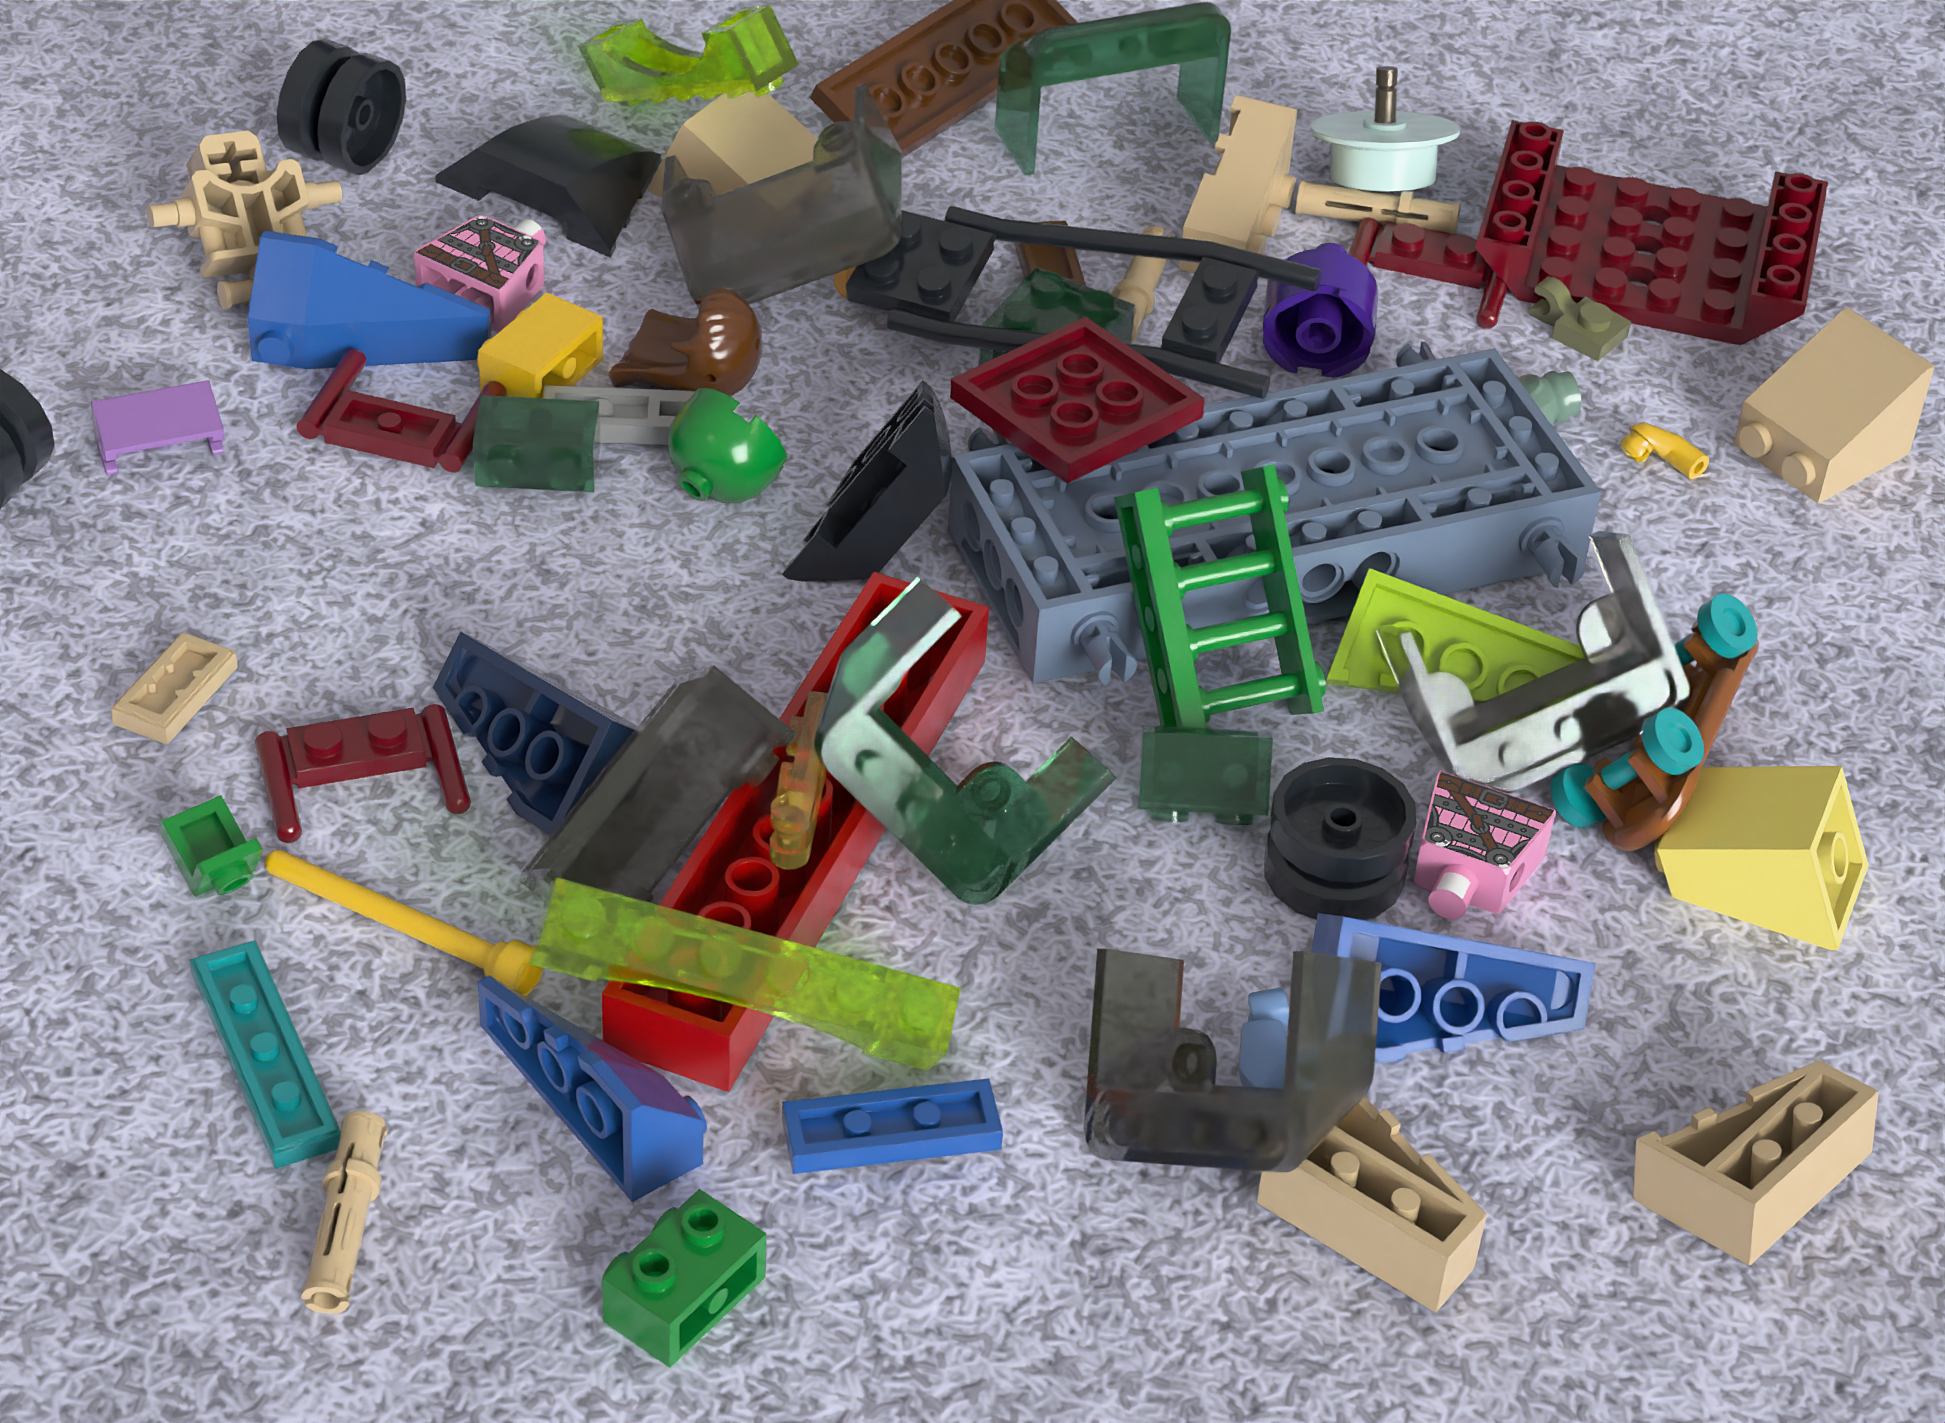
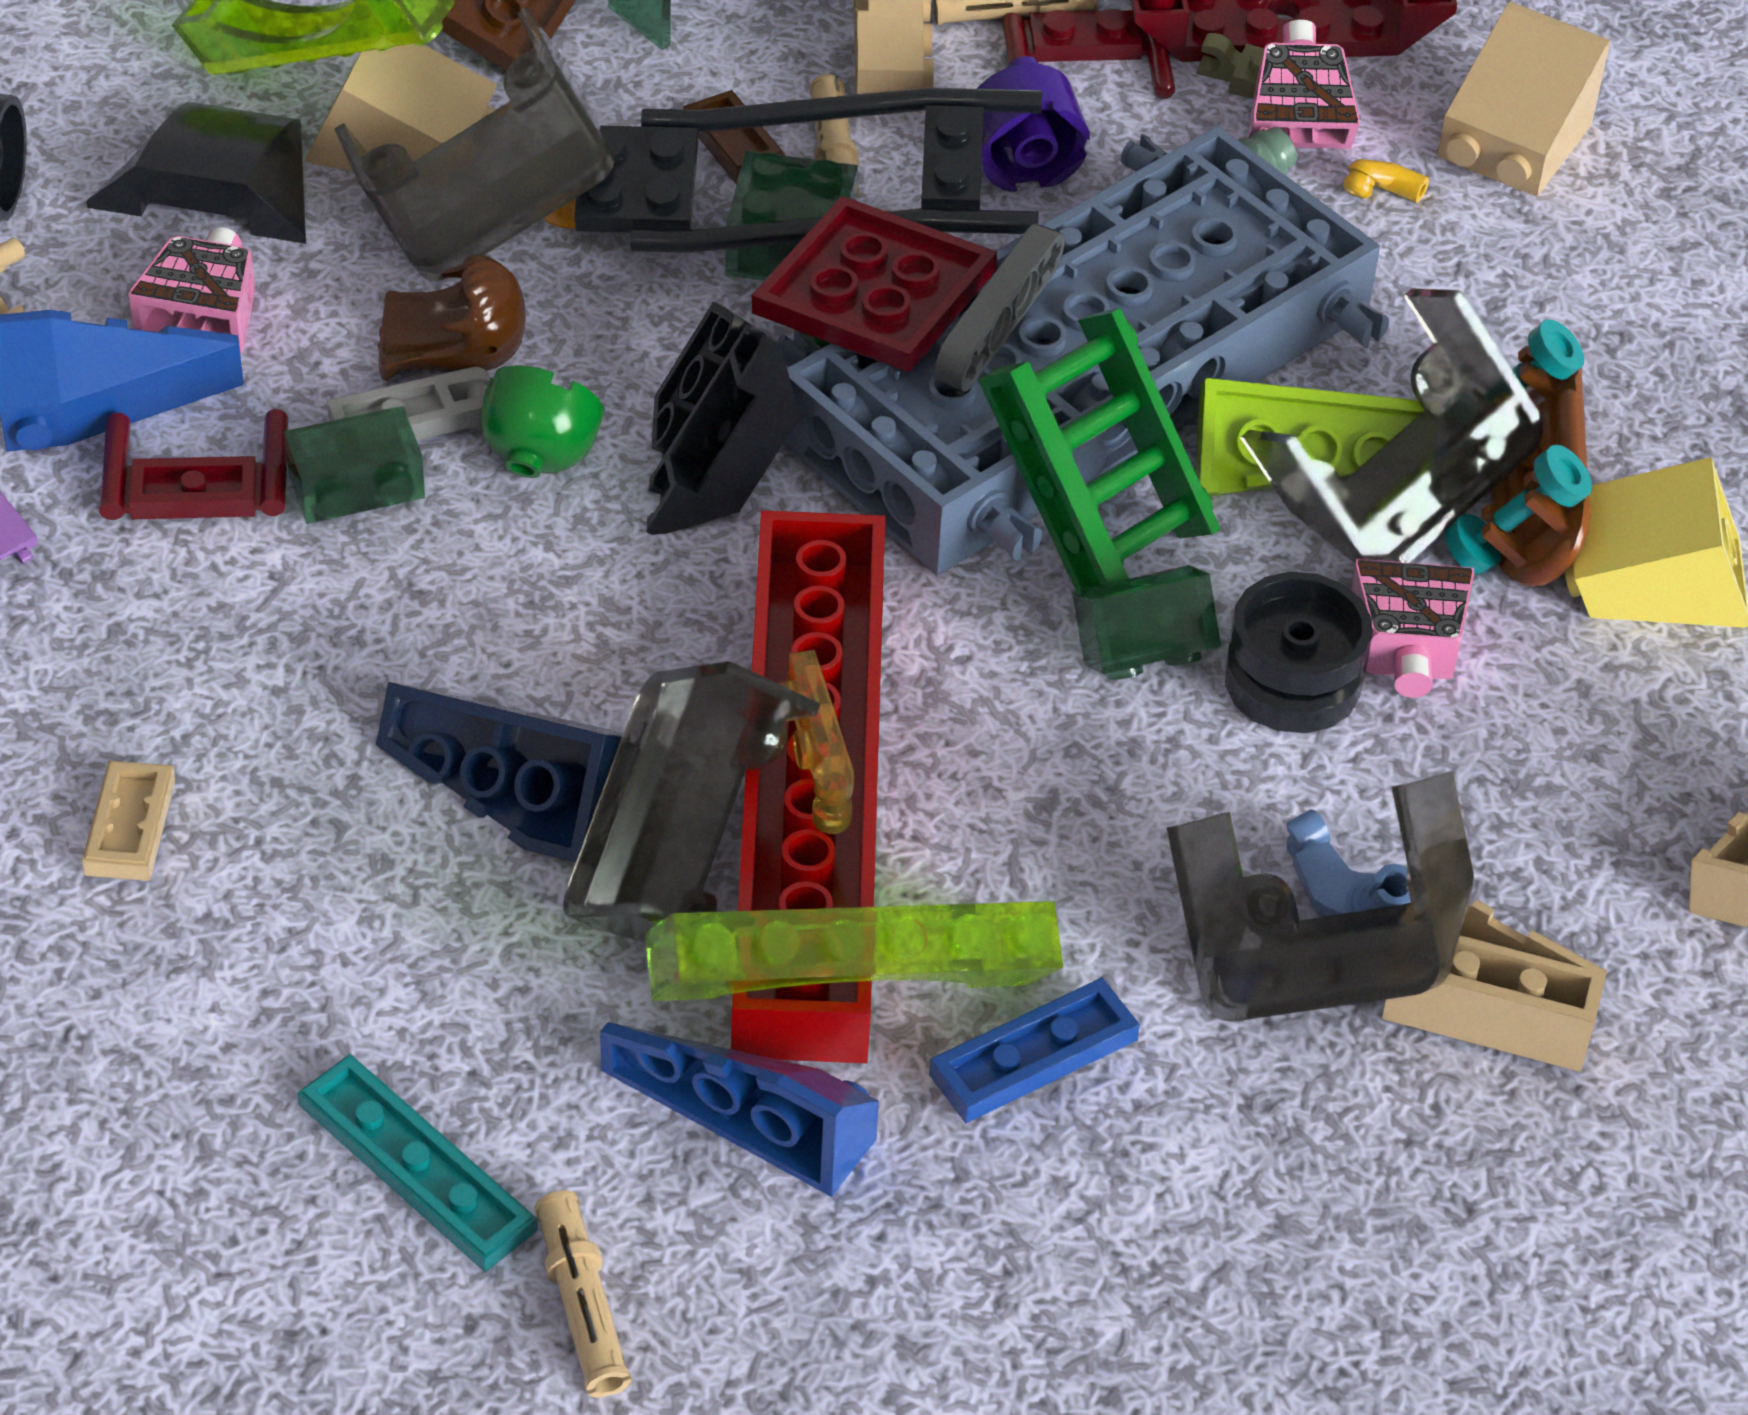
camera: 20 degrees left, 5 degrees up
(210, 848) = (259, 975): green bracket -> none
(357, 750) = (338, 831): dark red plate -> none
(501, 961) = (600, 1003): yellow piece -> none
(543, 346) = (302, 364): yellow brick -> none
(683, 1277) = (925, 1255): green brick -> none
(965, 833) = (977, 726): clear green windscreen -> none
(1186, 445) = (999, 307): none -> dark grey beam
(1458, 989) = (1488, 752): blue wedge -> none
(1613, 347) = (1305, 91): none -> torso

